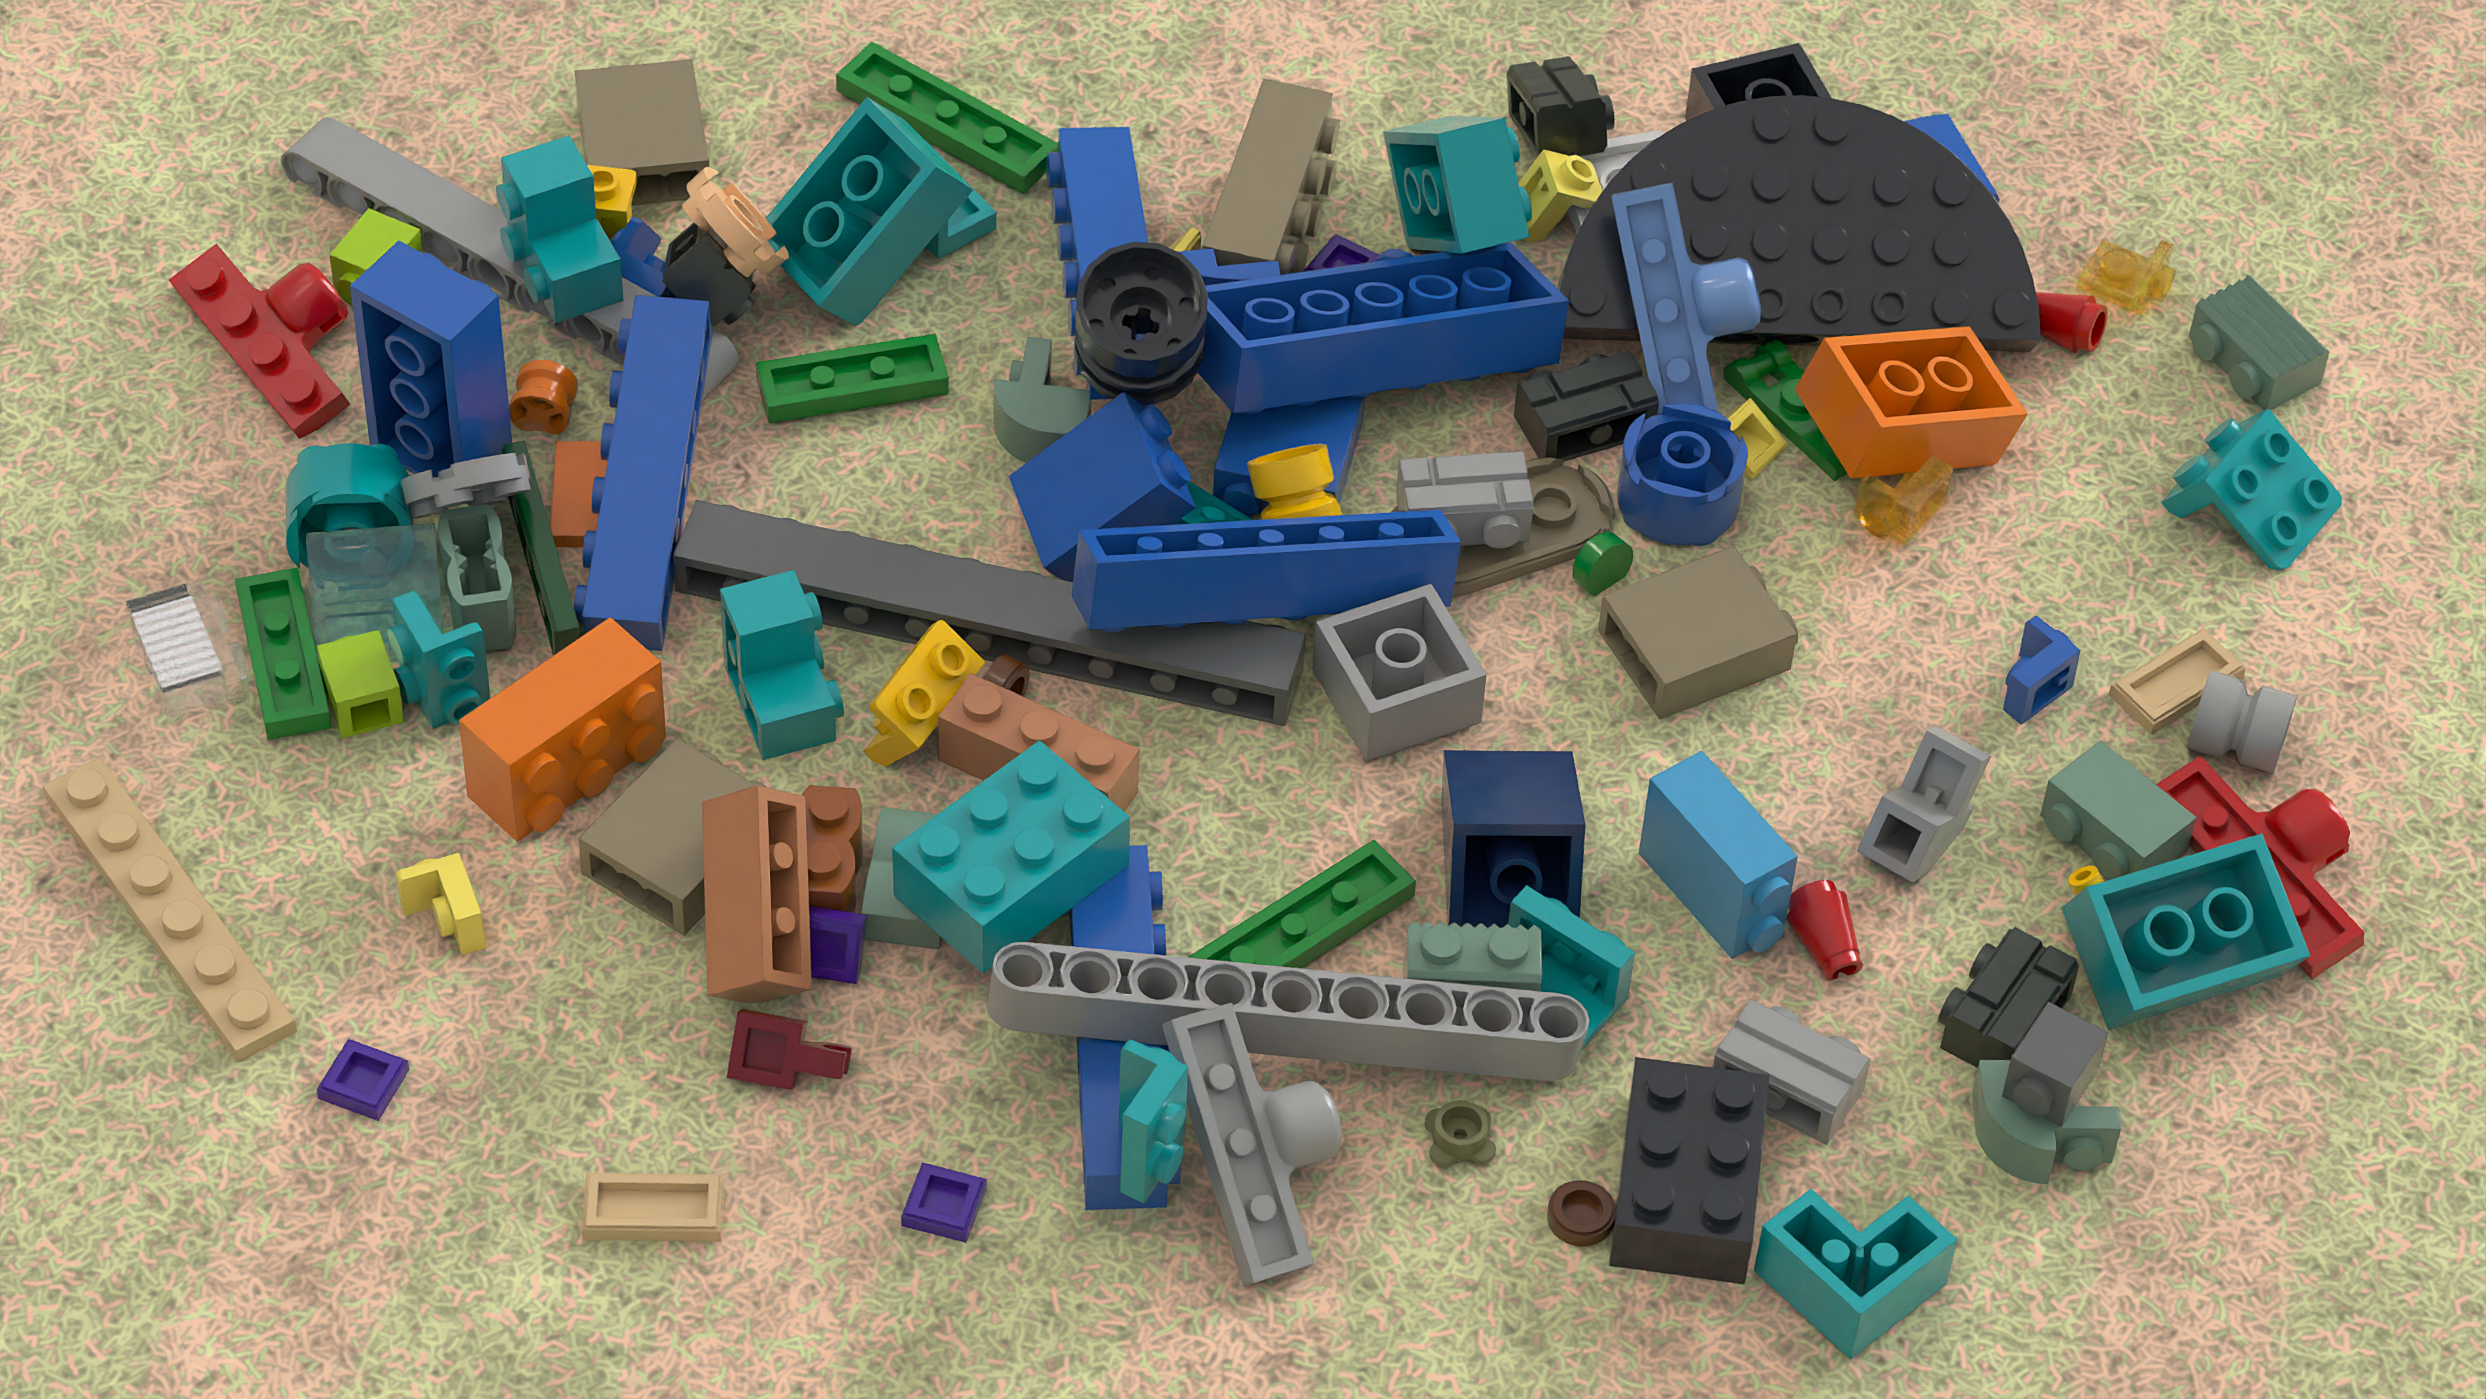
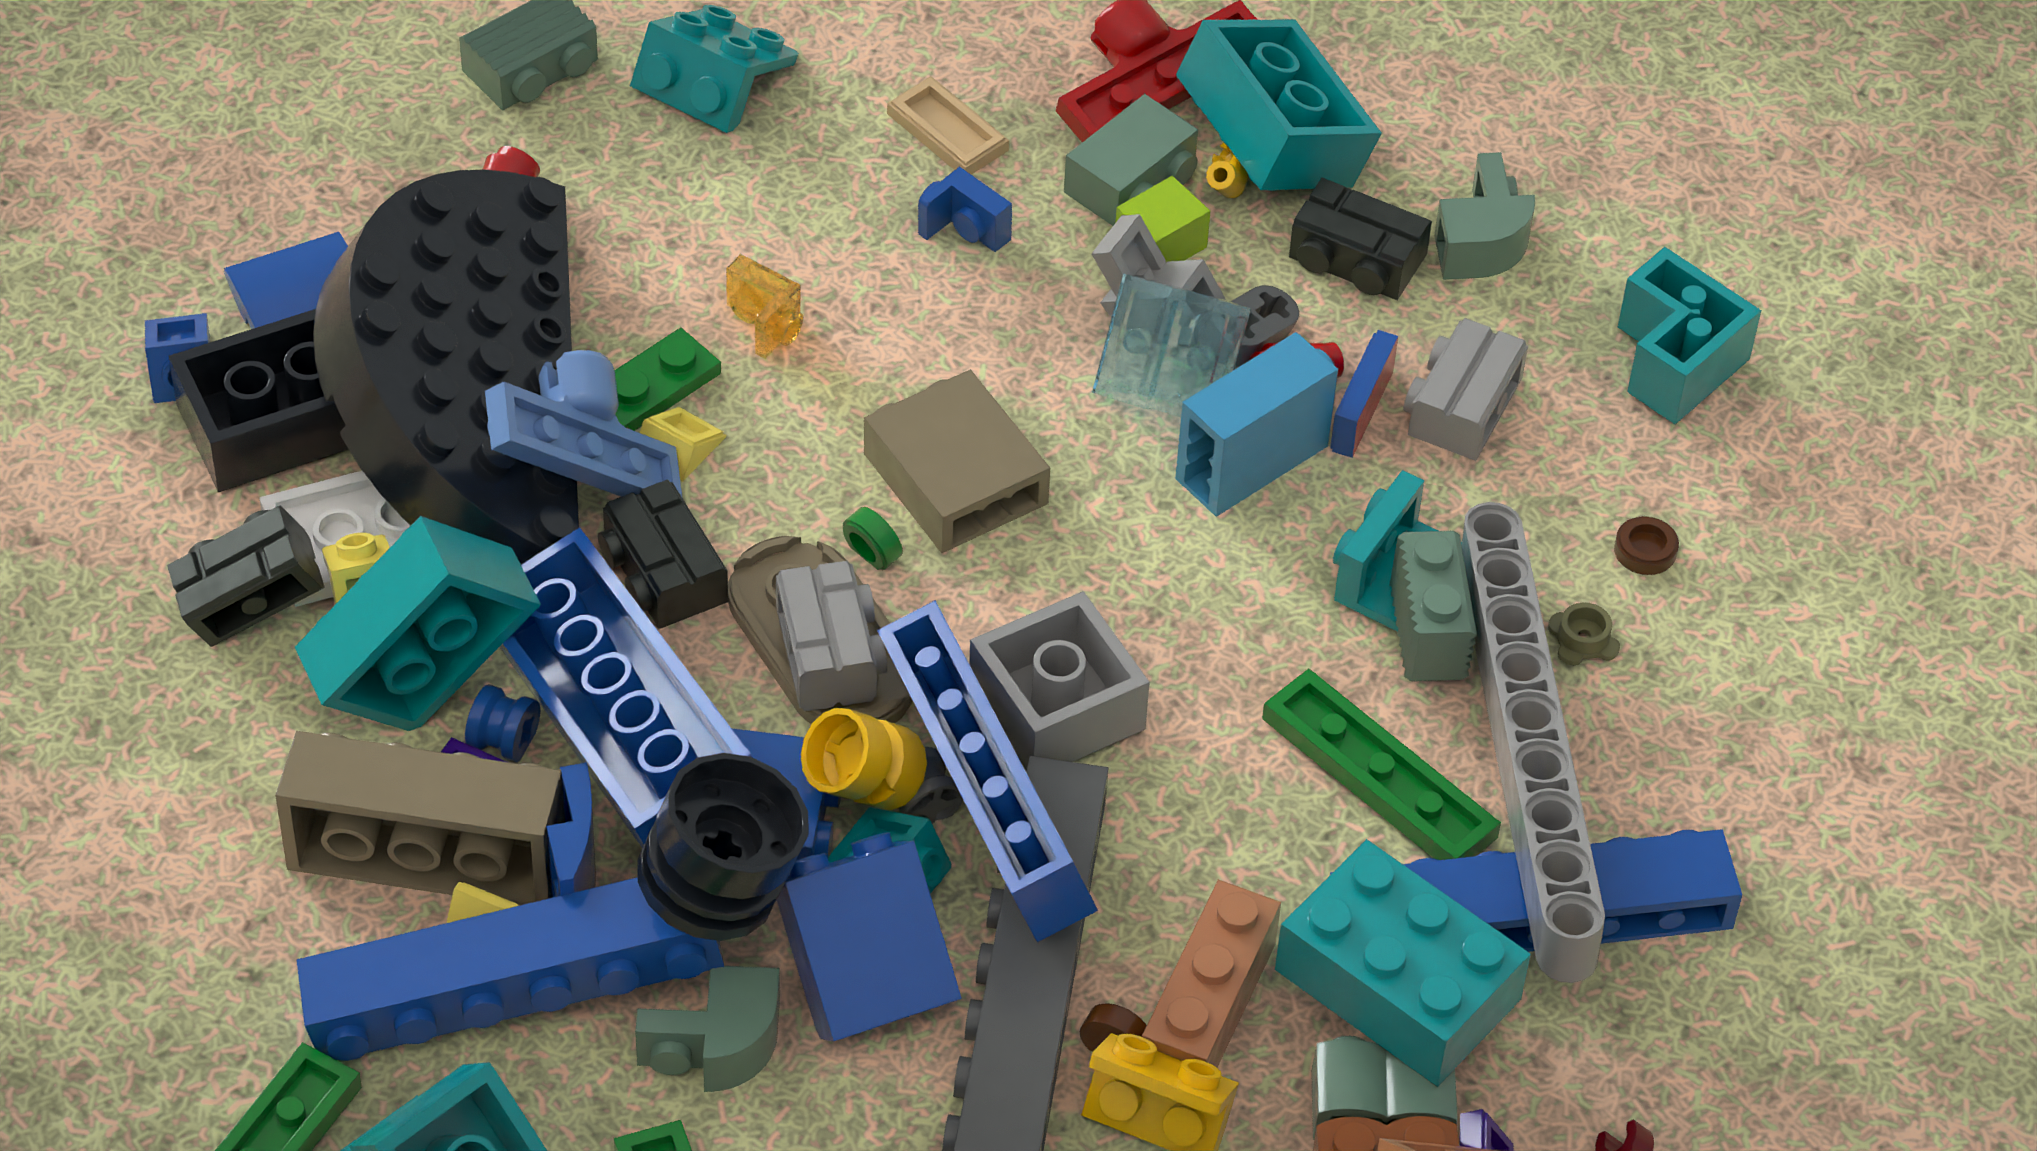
camera: 95 degrees left, 0 degrees up
(944, 1202) = (1760, 1040): dark purple tile -> none
(1151, 1117) = (1722, 804): teal bracket -> none
(1252, 1140) = (1666, 760): light grey plate -> none
(1510, 826) = (1242, 590): dark blue slope -> none
(1681, 475) = (762, 467): blue brick -> none
(1690, 1170) = (1601, 453): black brick -> none
(1783, 978) = (1364, 393): none -> blue tile
(1836, 799) = (1167, 344): none -> clear light blue slope
(1854, 78) = (166, 338): none -> blue bracket
(1891, 882) = (1269, 321): none -> dark grey beam
(1910, 397) = (665, 280): orange brick -> none
(2020, 831) = (1172, 217): none -> lime brick
(2054, 1064) = (1468, 176): dark grey brick -> none
(2128, 277) = (439, 138): clear yellow bracket -> none
(2241, 722) = (1010, 70): light grey wheel -> none

